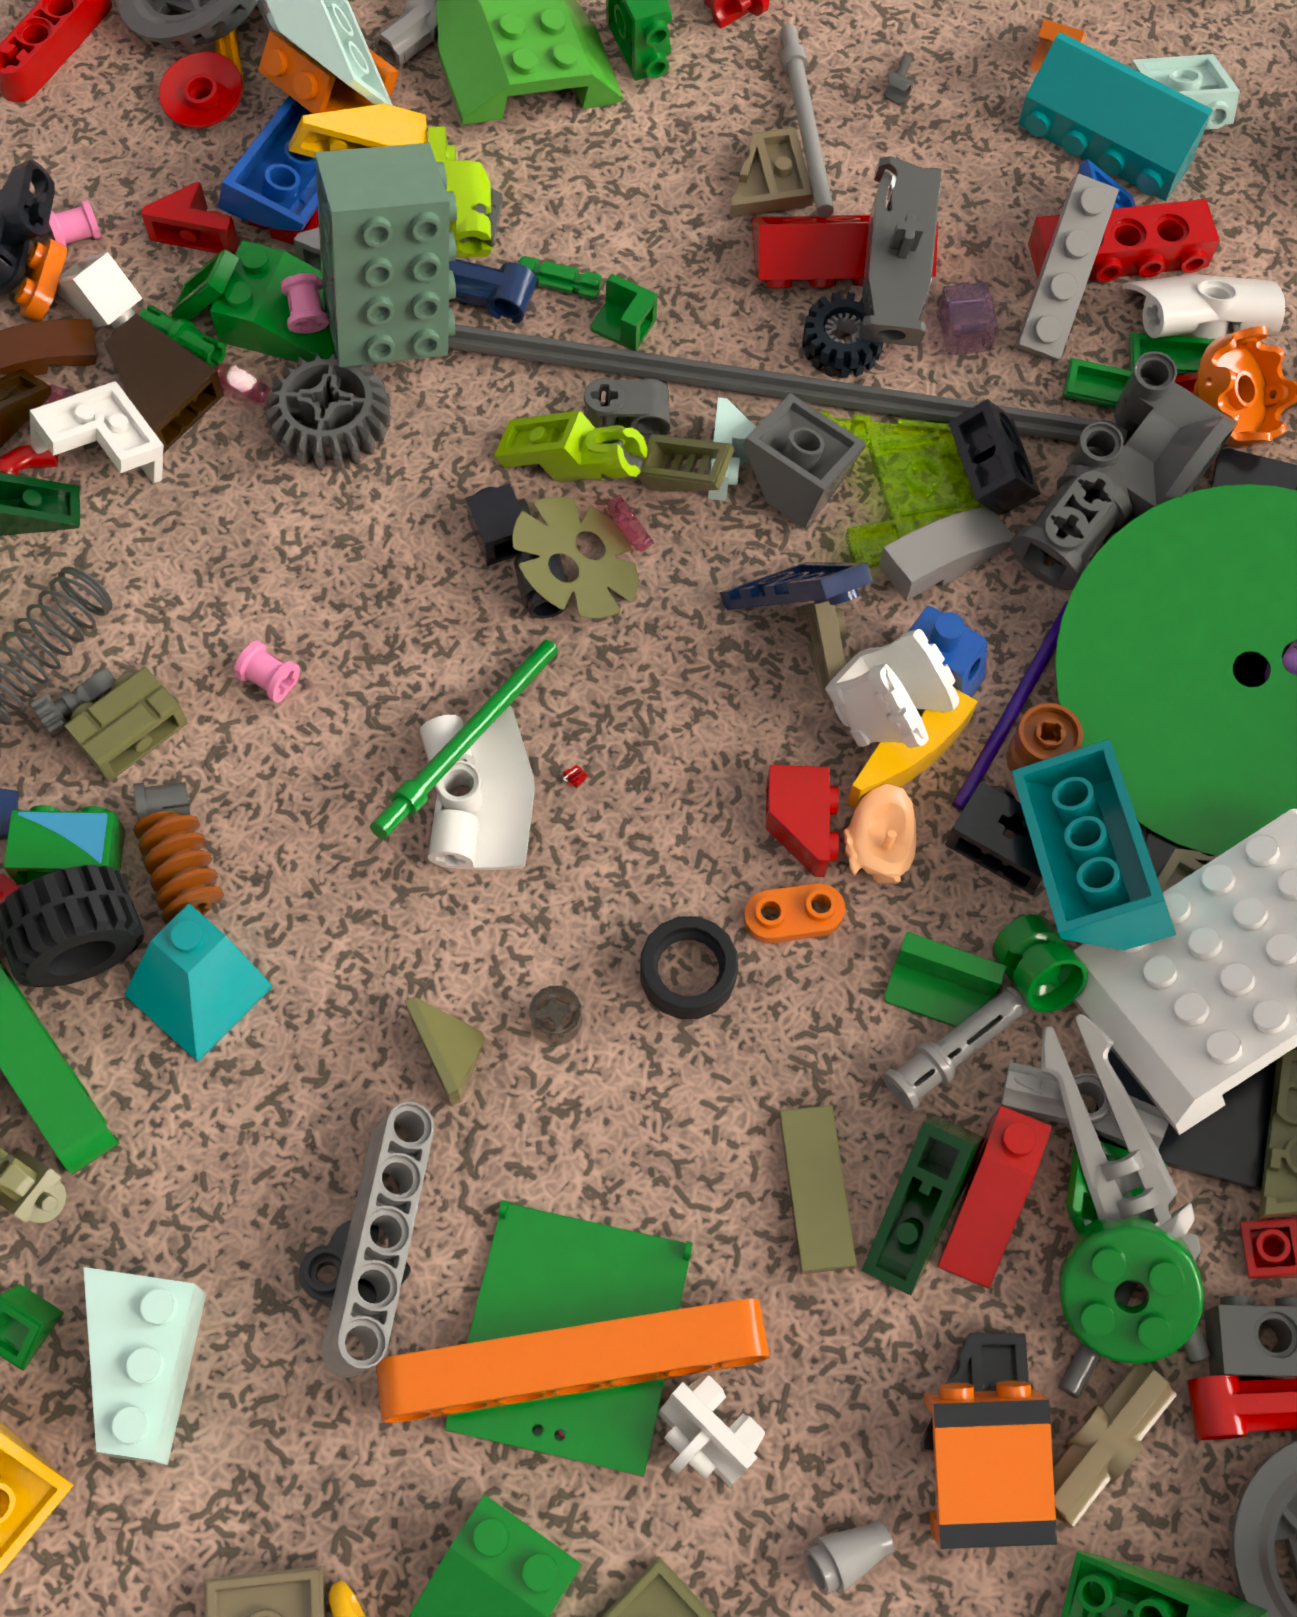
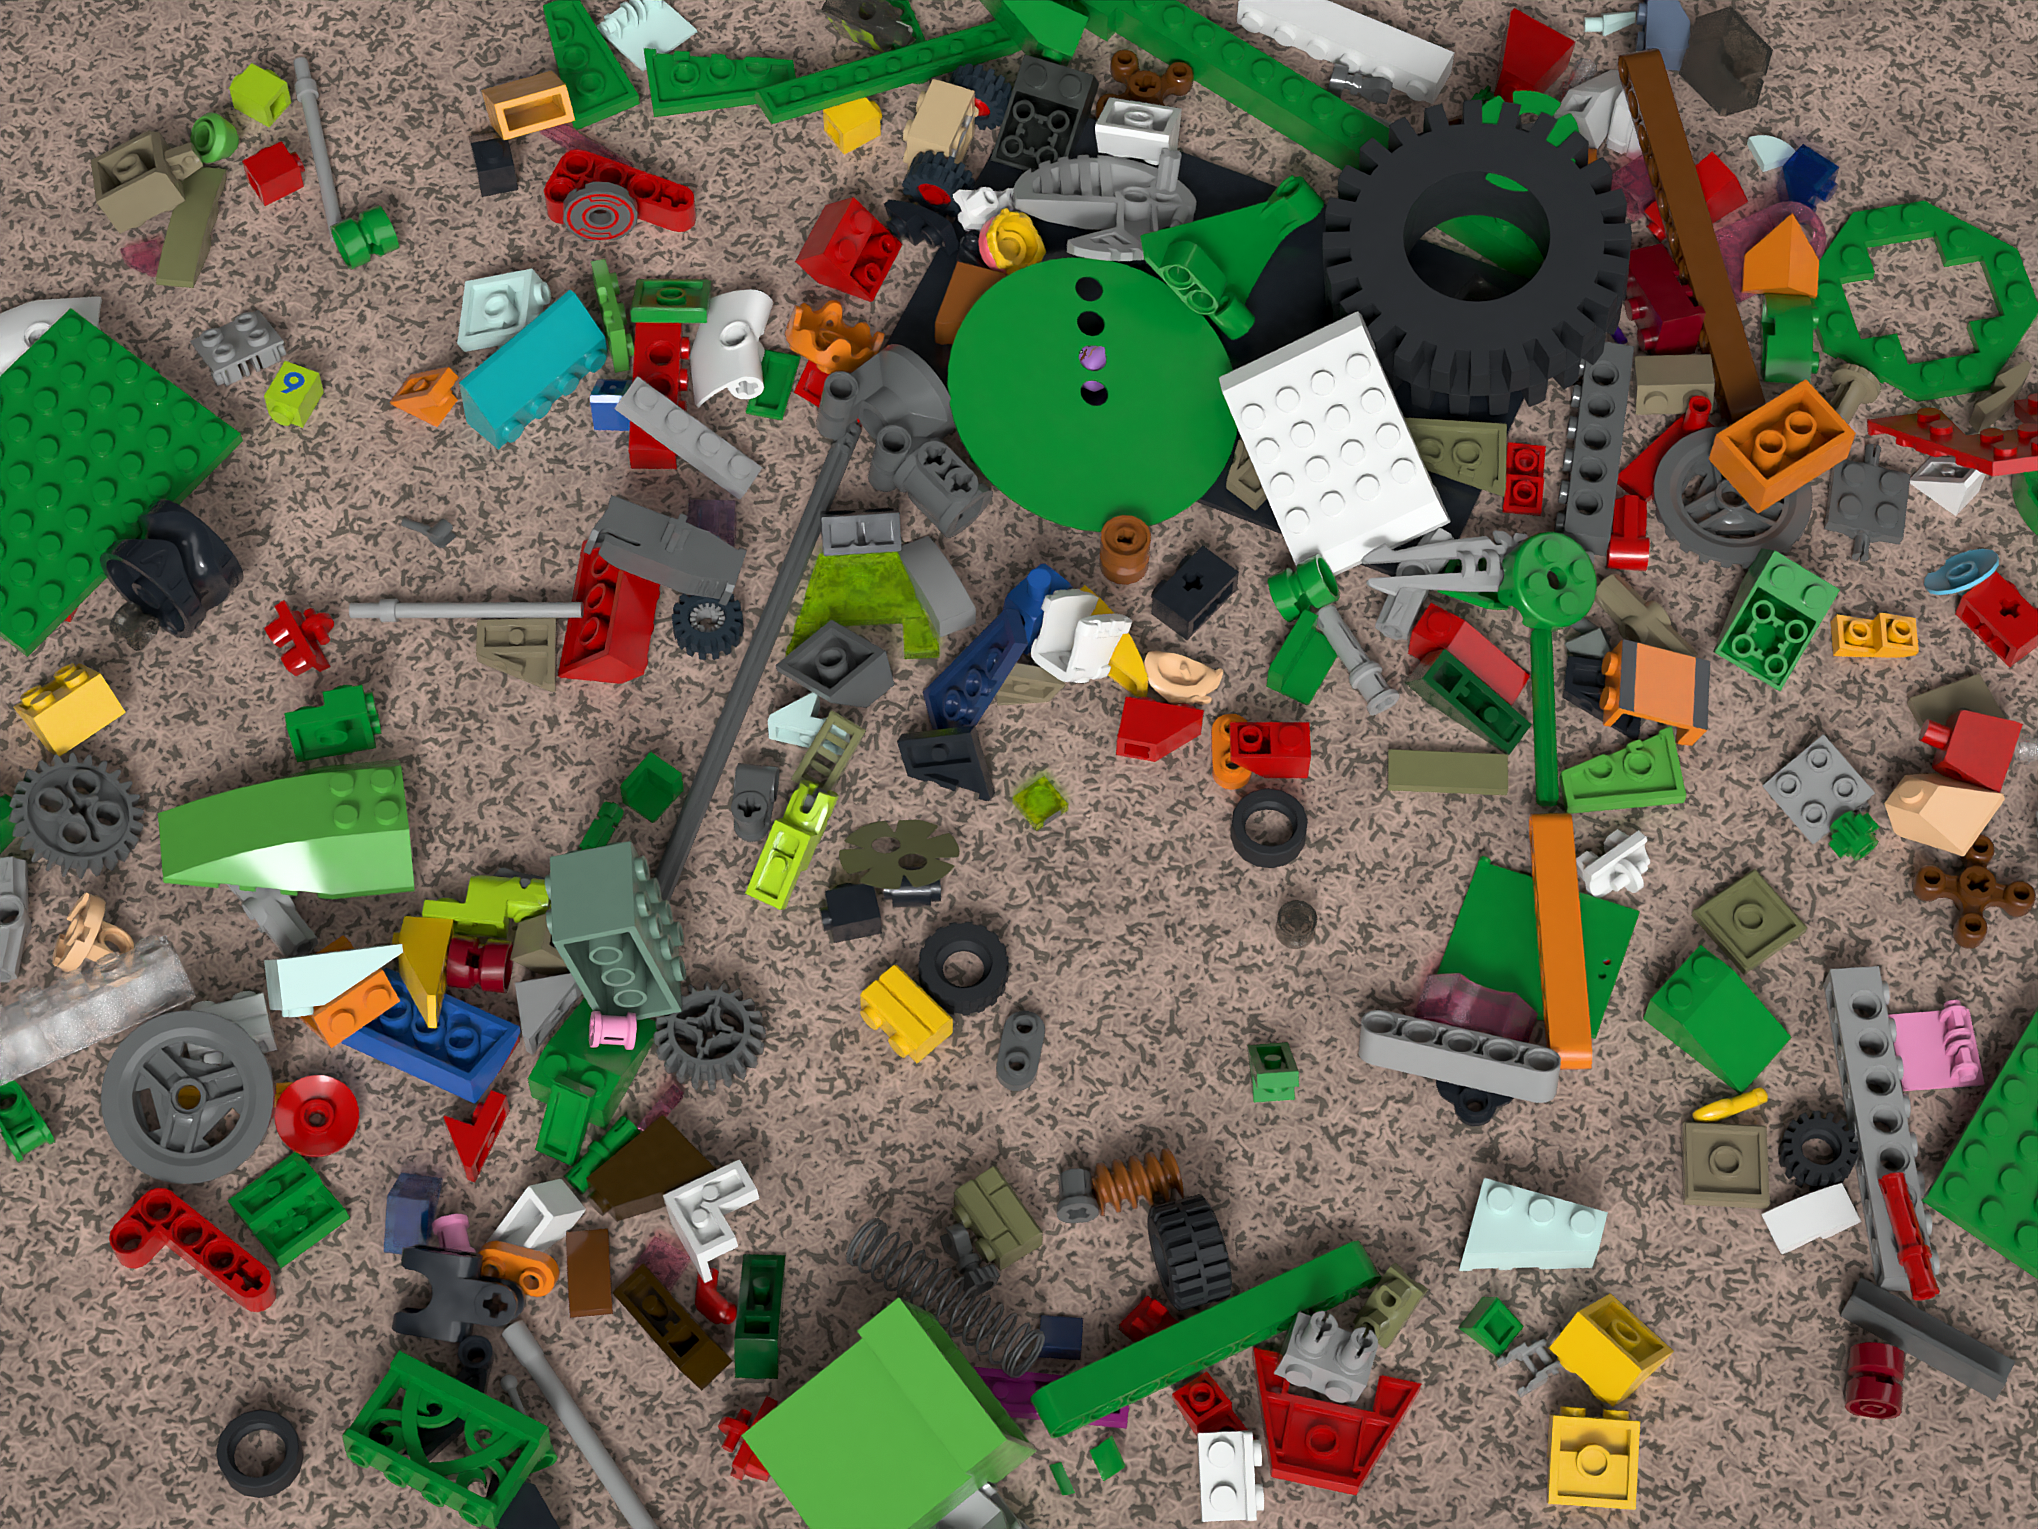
camera: 80 degrees left, 5 degrees down
(58, 840) = (1105, 1269): green brick -> none
(105, 92) = (288, 1209): none -> green slope
(109, 184) = (410, 1211): none -> clear blue slope
(195, 983) = (1235, 1181): teal slope -> none
(266, 671) = (963, 1106): bright pink bush -> none
(345, 1007) = (1272, 1072): none -> green slope
(349, 727) = (1021, 1049): none -> dark grey plate
(376, 594) = (905, 1014): none -> yellow brick
(413, 793) = (1115, 984): green bar -> none
(444, 613) = (970, 939): none -> black tyre
(448, 1258) = (1466, 1005): none -> clear pink brick
(449, 1044) = (1313, 1004): olive slope -> none
(494, 819) = (1072, 944): white panel -> none
(575, 776) = (1090, 890): red piece -> none
(629, 523) = (863, 814): clear pink tile -> none
(680, 705) = (1040, 803): none -> clear neon green plate
(711, 592) = (948, 758): none -> black wing
(796, 951) = (1271, 748): none -> red slope
(846, 1556) = (1703, 795): light grey cone -> none
(855, 1446) = (1630, 778): none -> bright green wing
(926, 1312) = (1544, 718): none -> green axle
(1009, 715) = (1075, 567): dark purple axle -> none
(1052, 1367) = (1590, 645): none -> pearl dark grey tile
(1092, 850) = (1230, 525): teal slope -> none
(1094, 383) = (793, 438): green tile -> none
(1215, 177) = (613, 315): none -> bright green wing
(1248, 234) = (671, 300): none -> green tile

